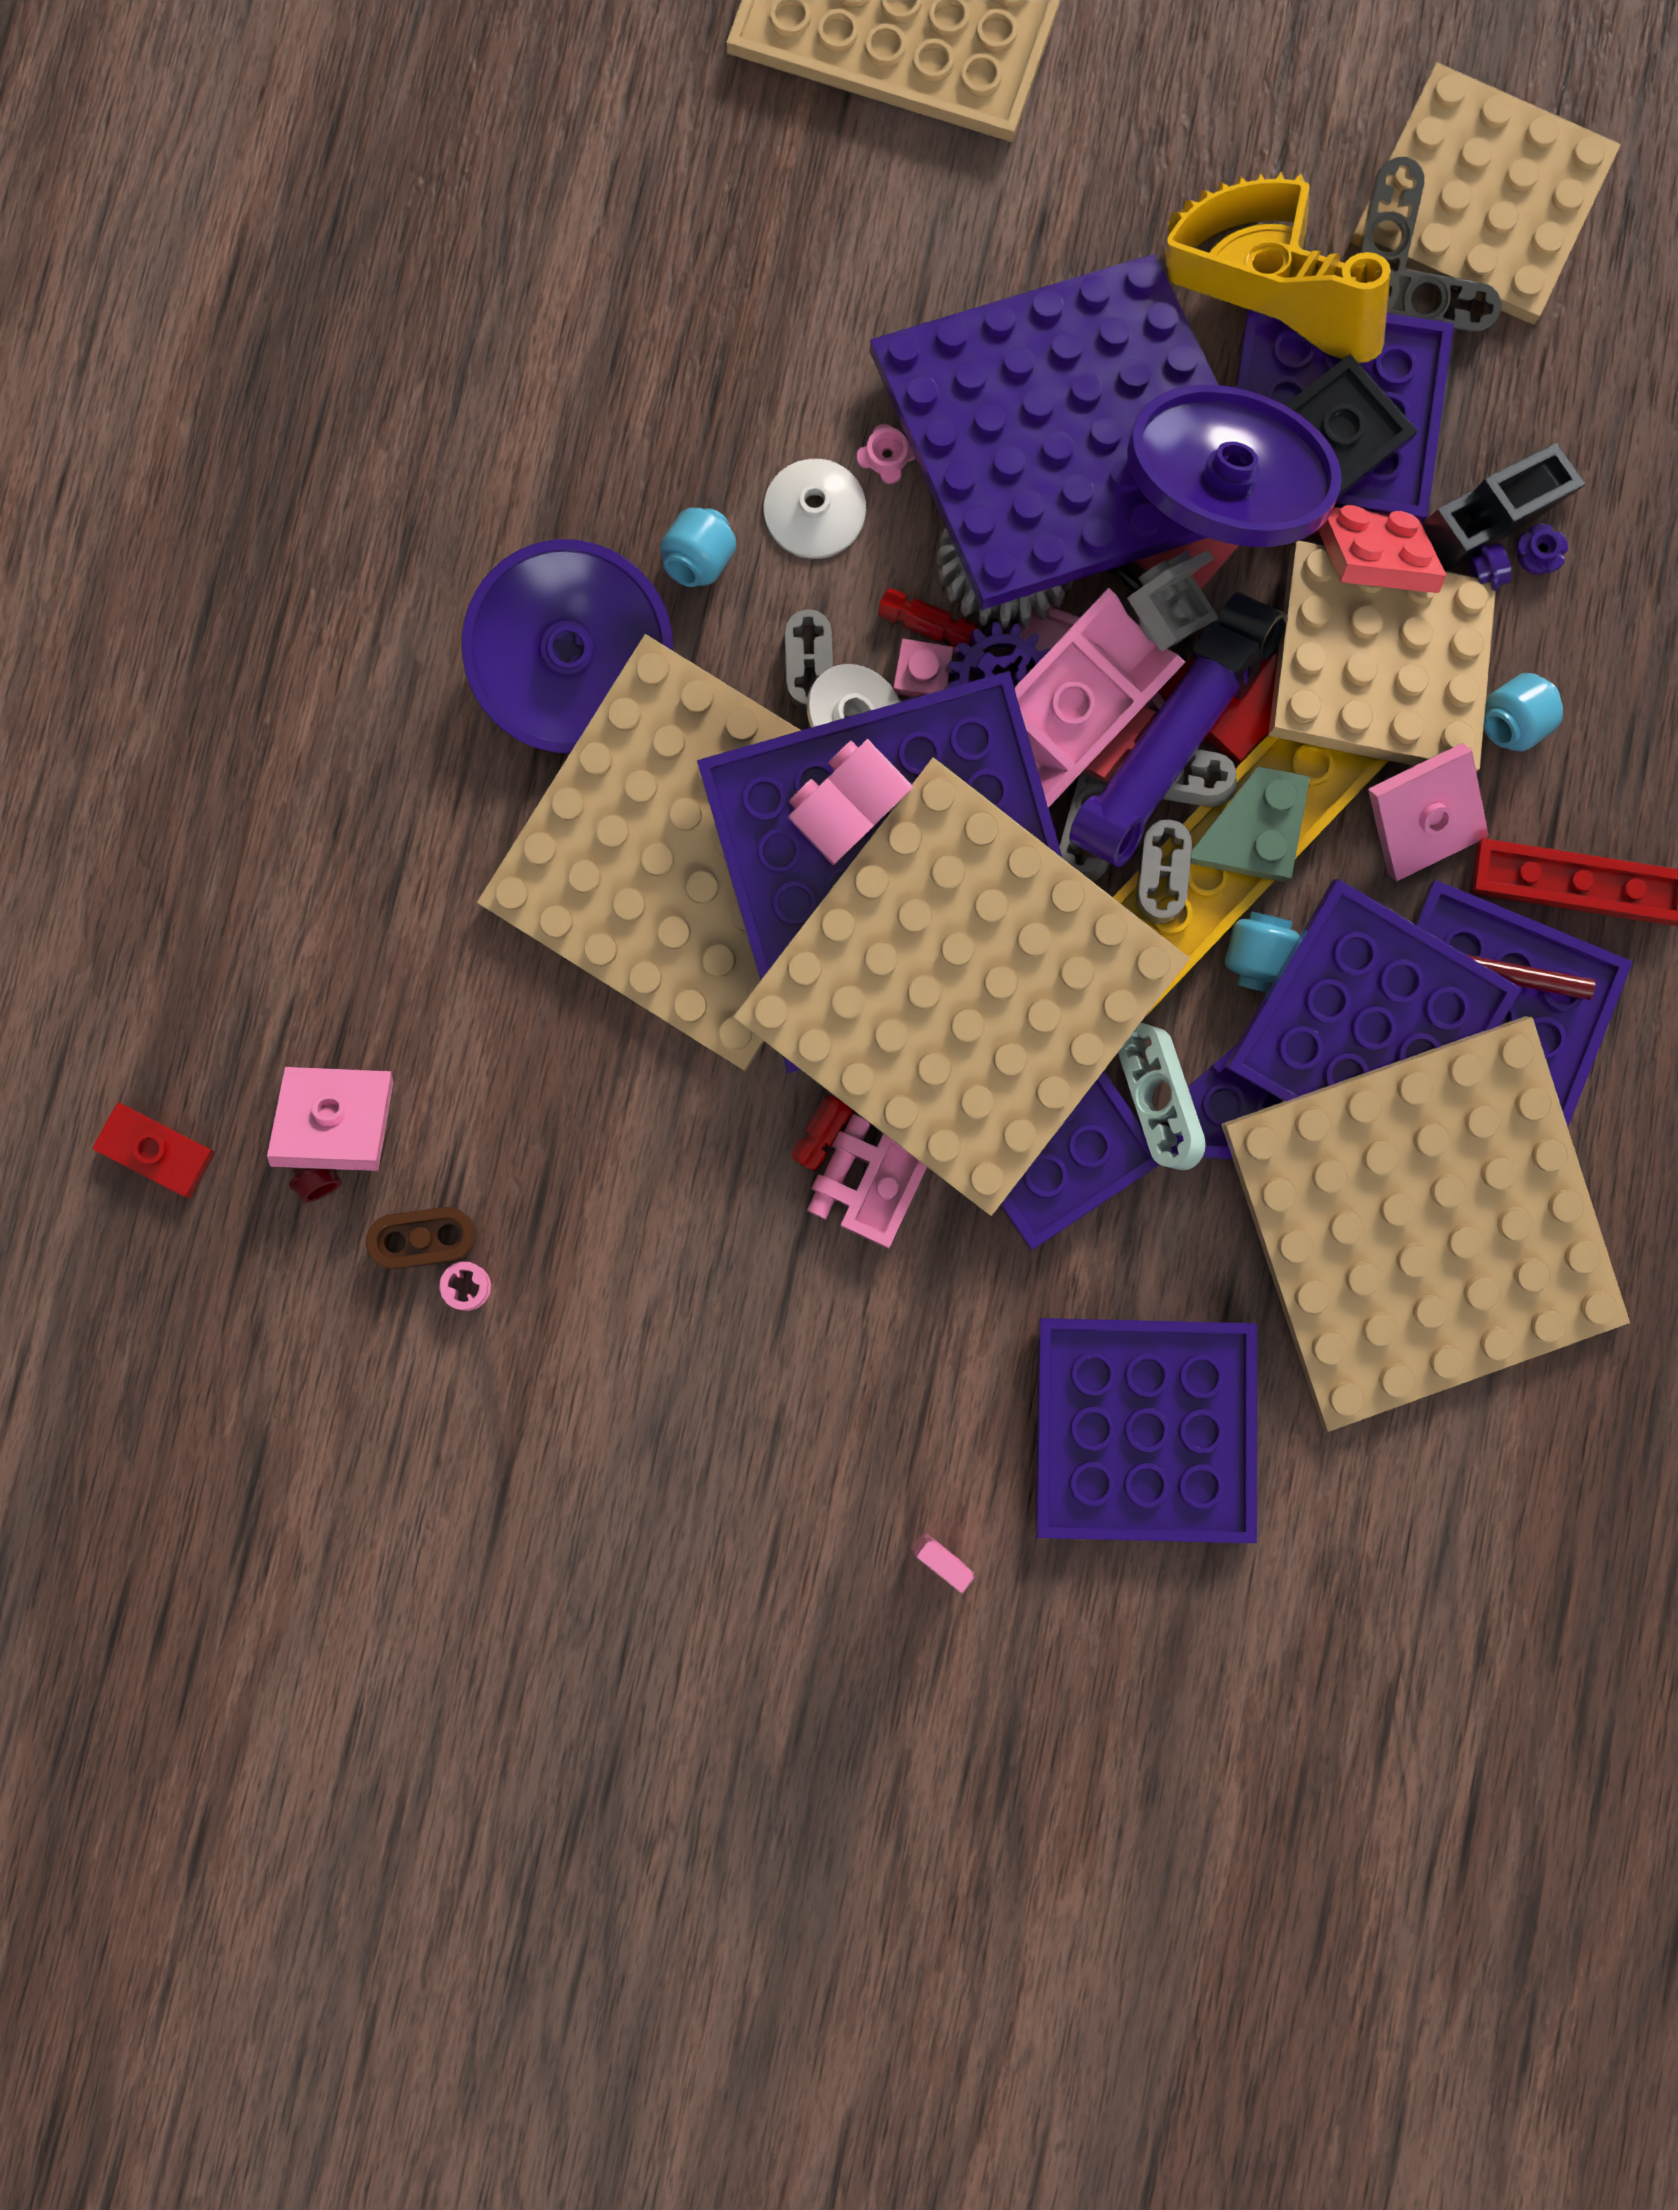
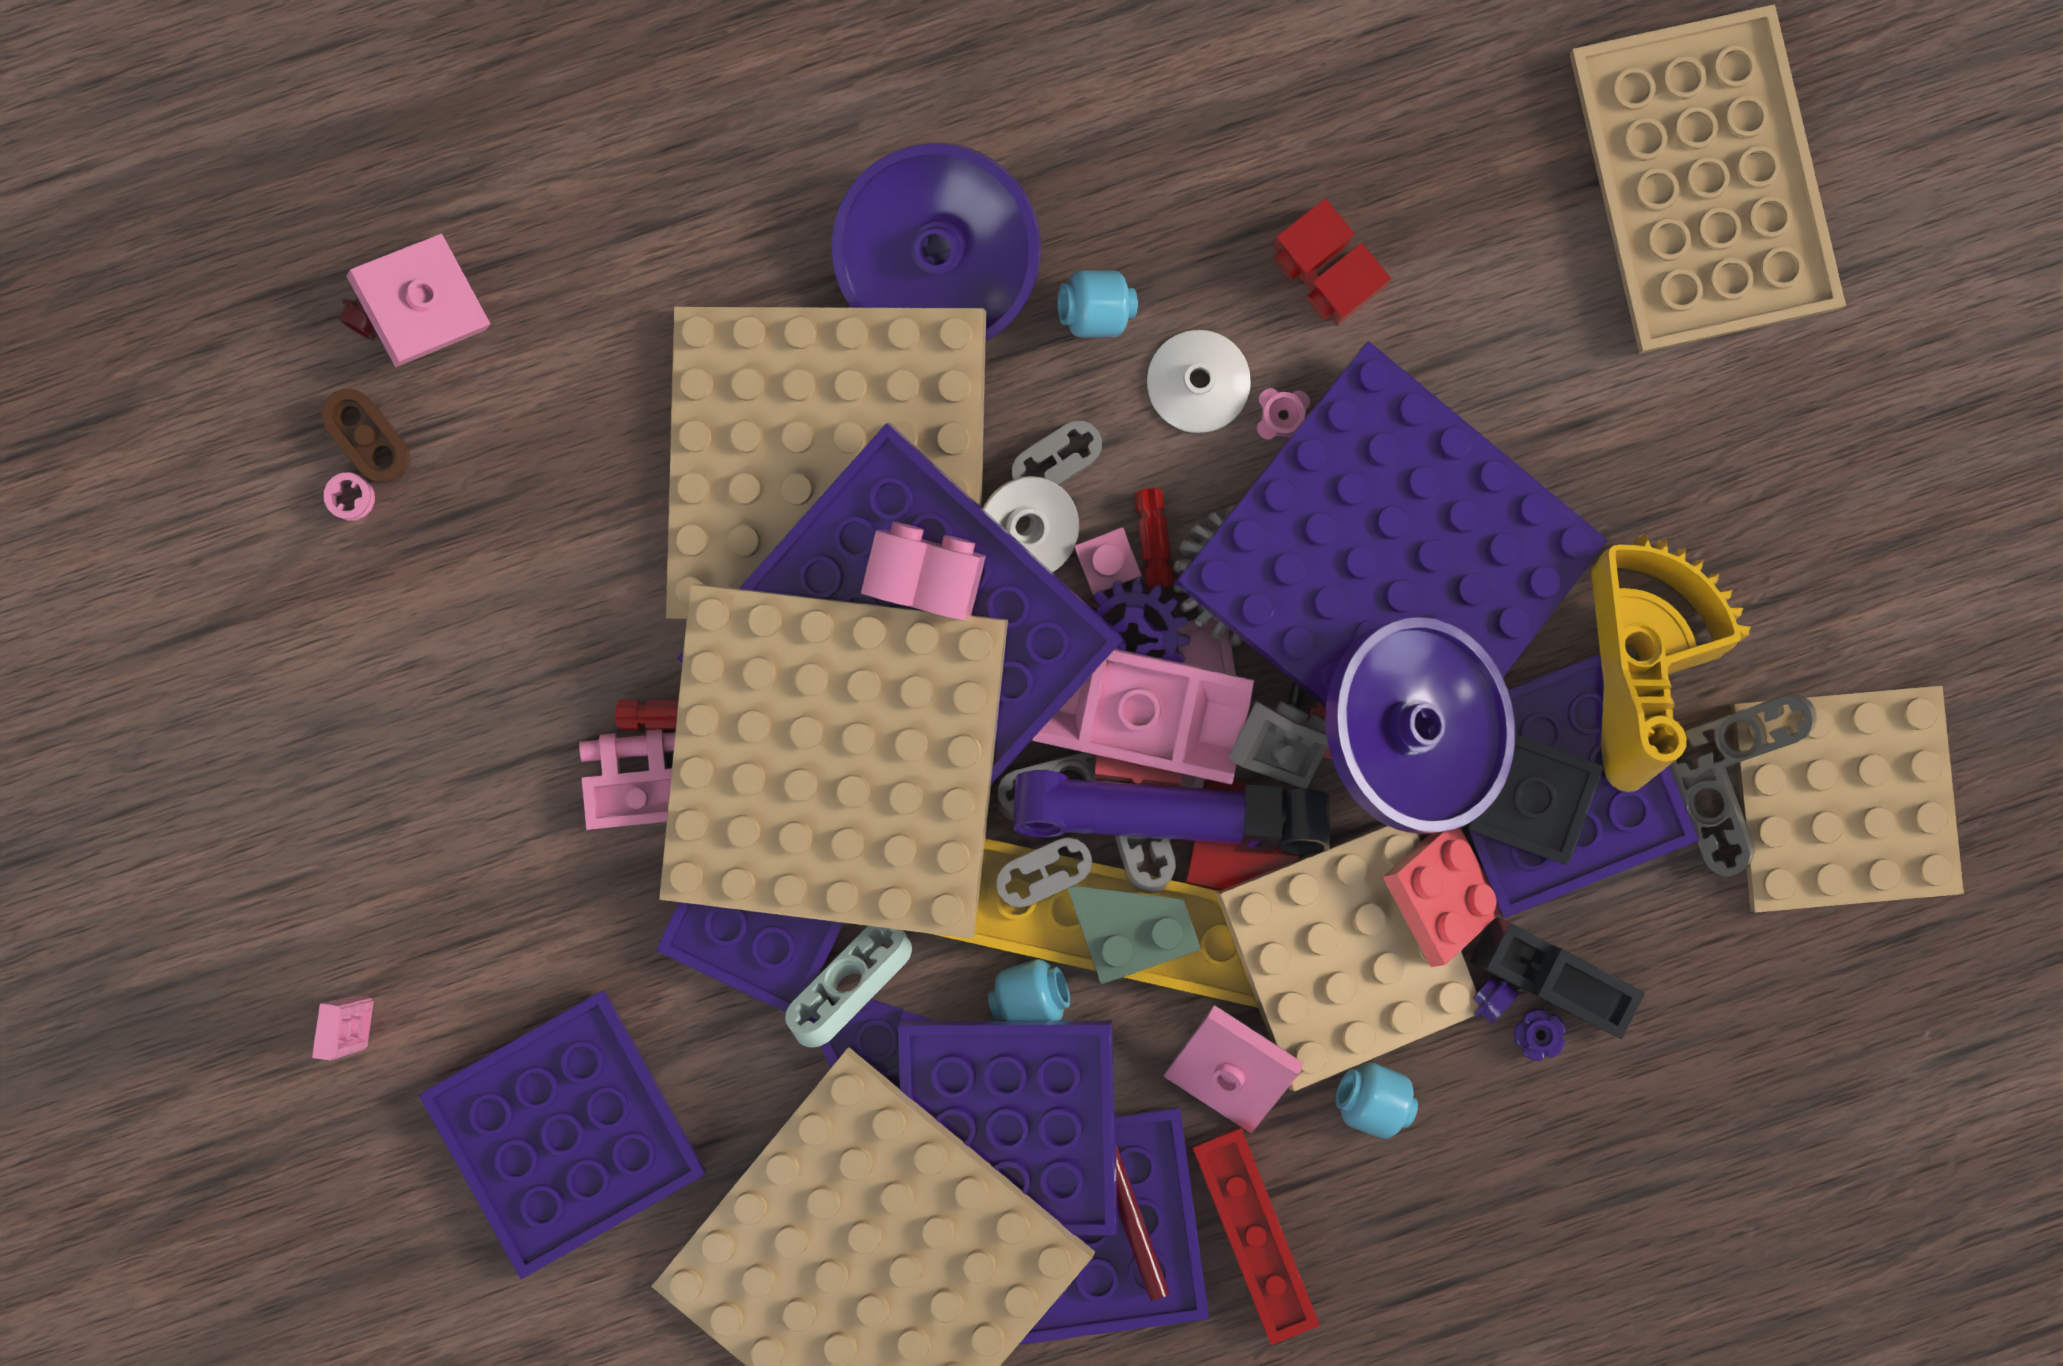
camera: 60 degrees right, 5 degrees up
(153, 1150) = (309, 168): red plate -> none
(809, 335) = (1314, 242): none -> red piece

